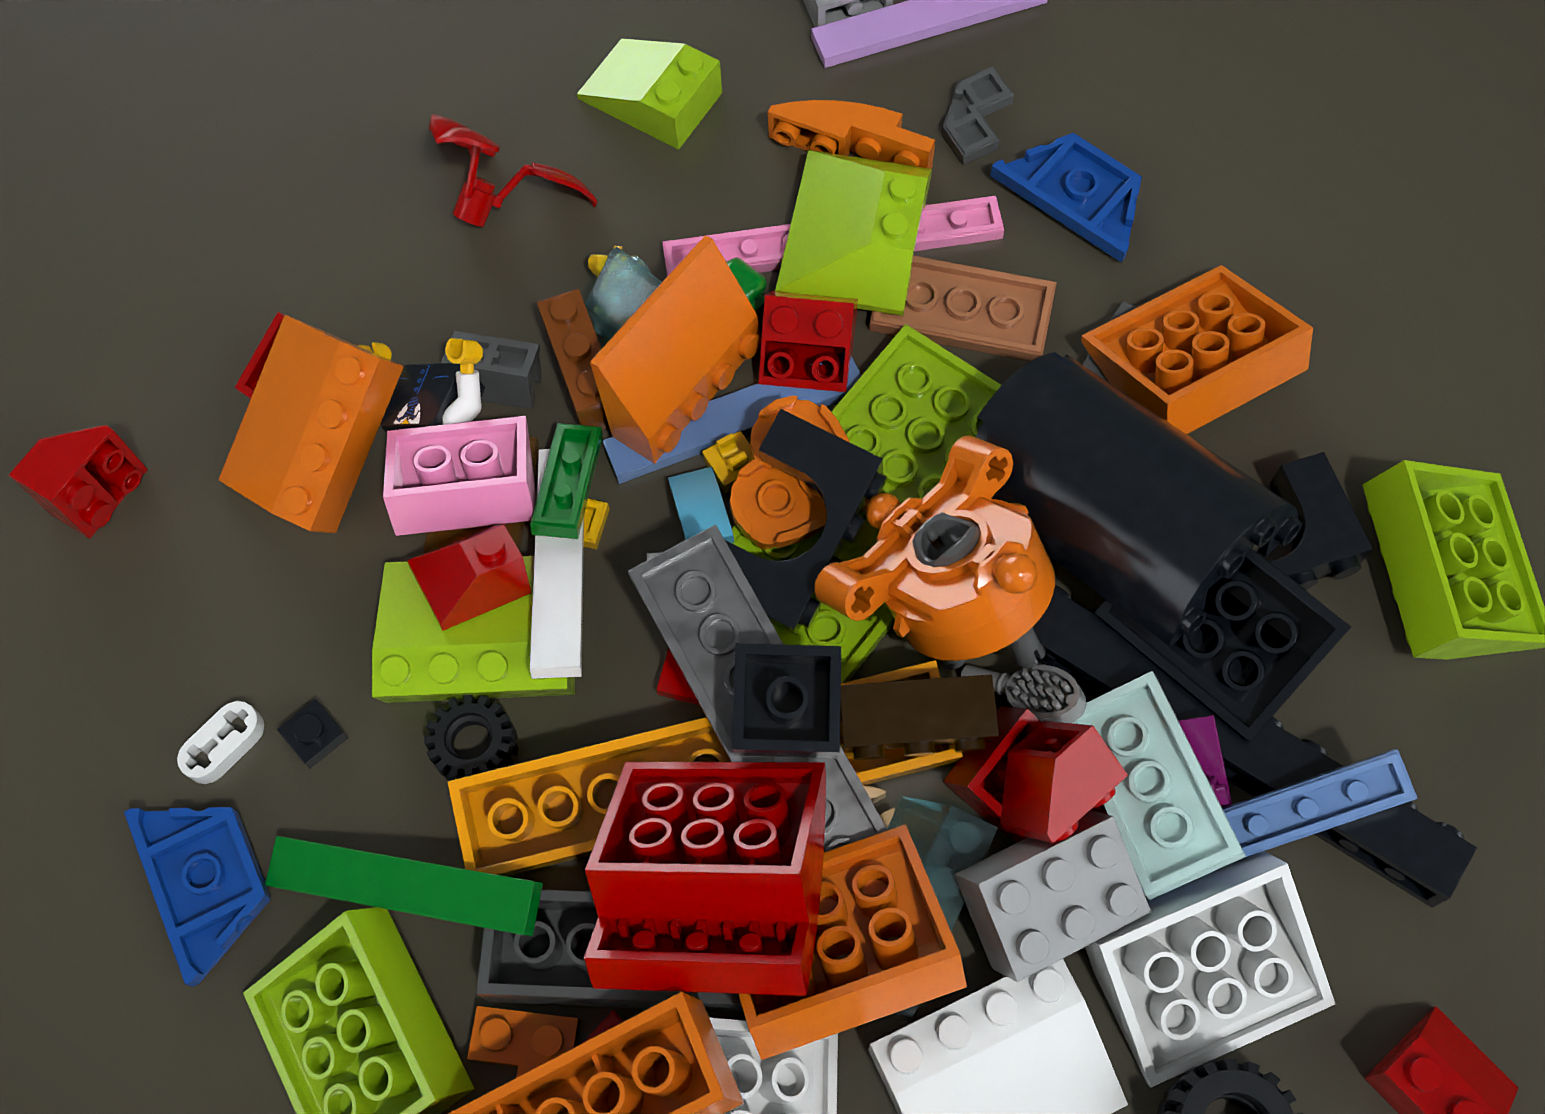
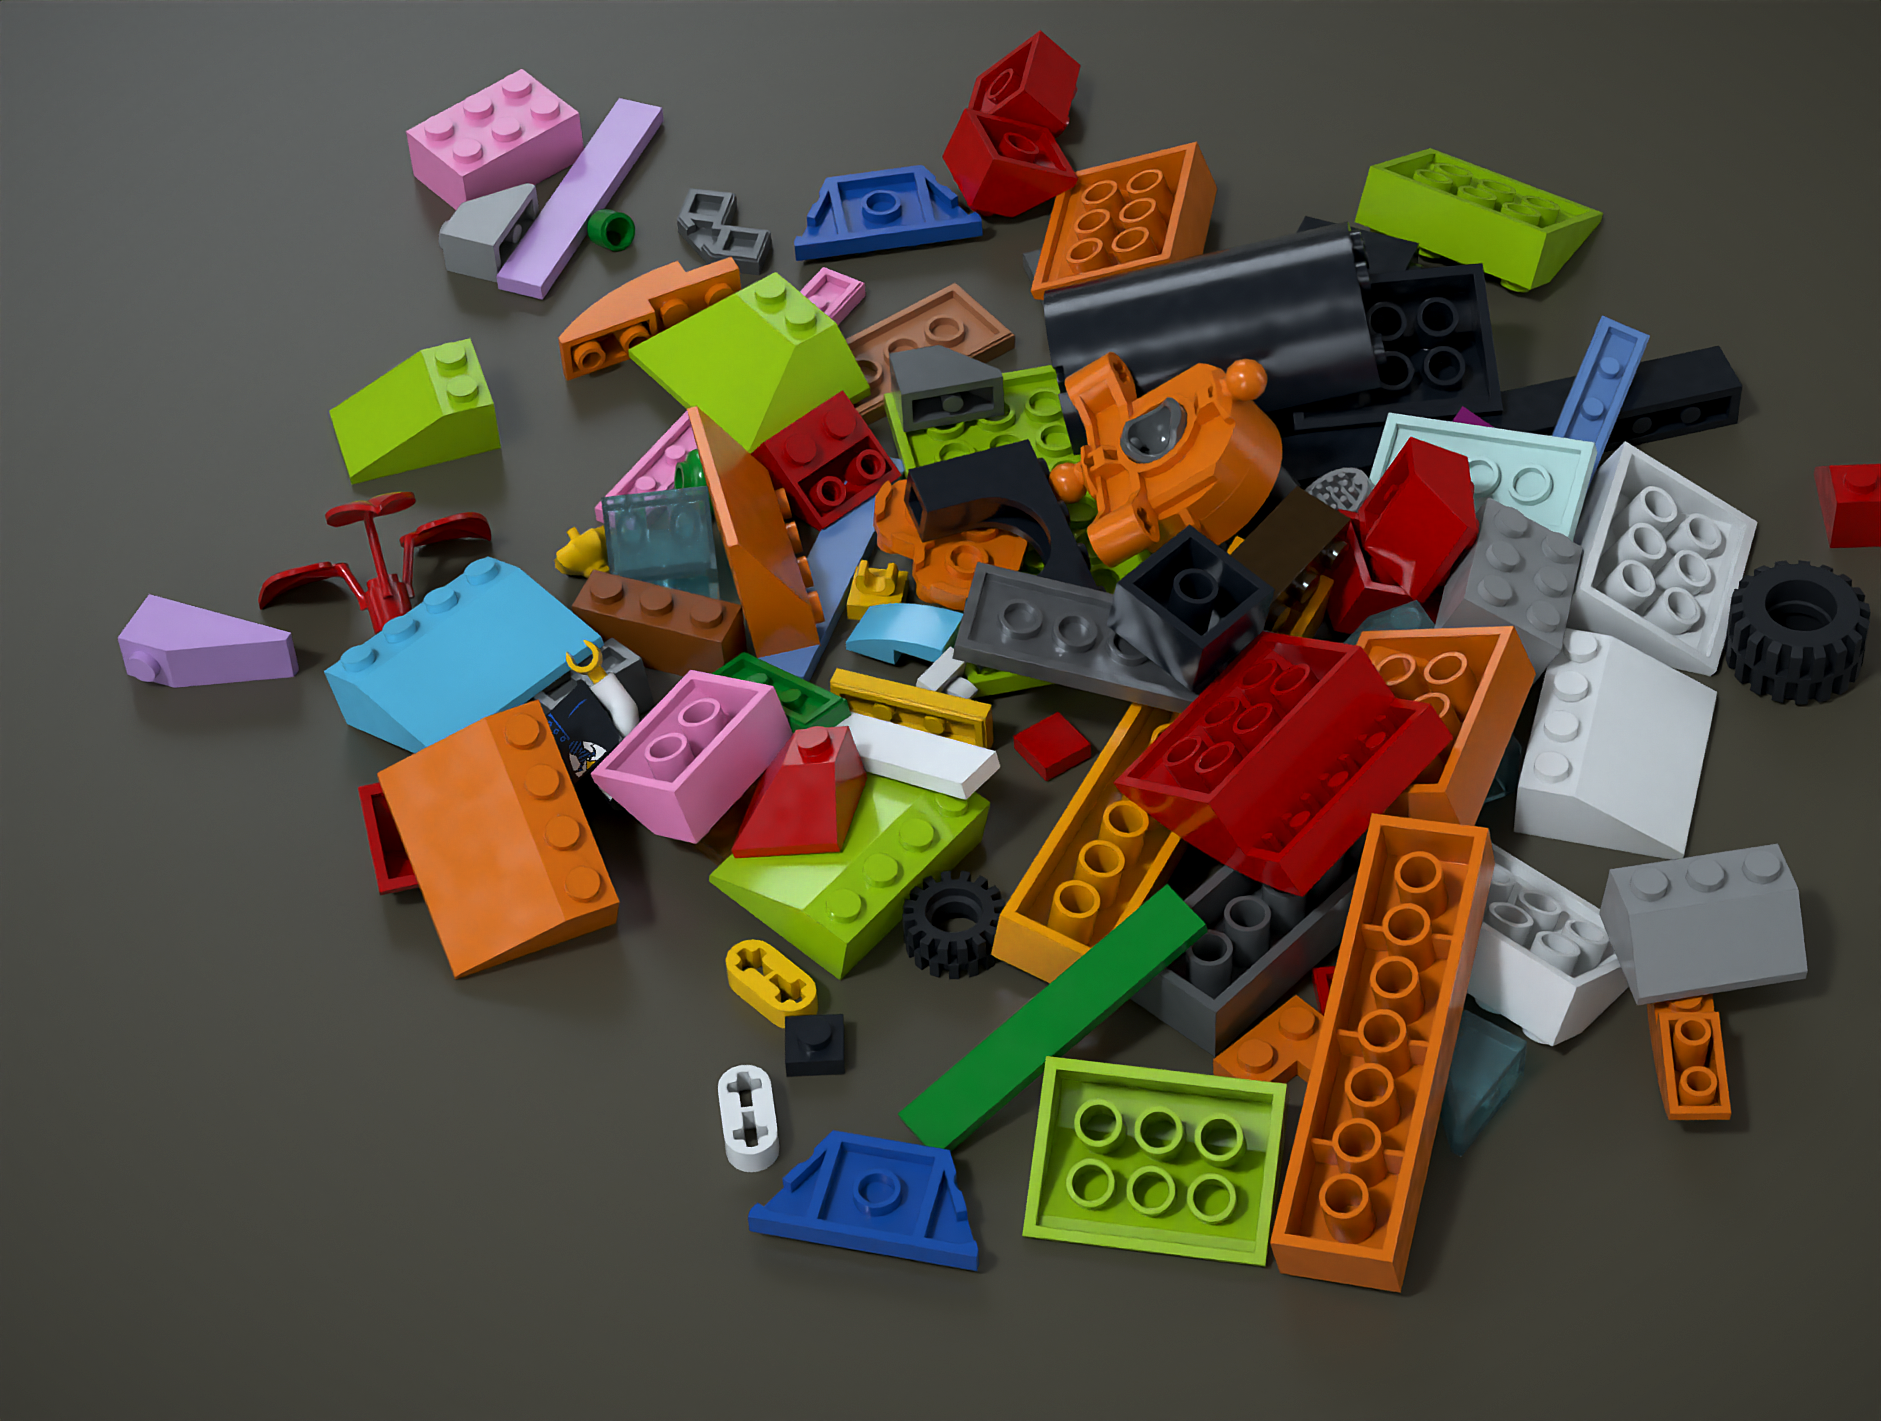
camera: 50 degrees left, 20 degrees down
(80, 476) = (348, 1055): red slope -> none
(352, 670) = (778, 977): none -> yellow beam
(358, 129) = (202, 647): none -> lavender slope
(449, 279) = (459, 657): none -> medium azure slope
(628, 554) = (916, 707): none -> yellow tile
(916, 44) = (610, 220): none -> green piece
(925, 354) = (943, 388): none -> dark grey slope
(1191, 226) = (1005, 164): none -> red slope
(1272, 183) = (1030, 85): none -> red slope

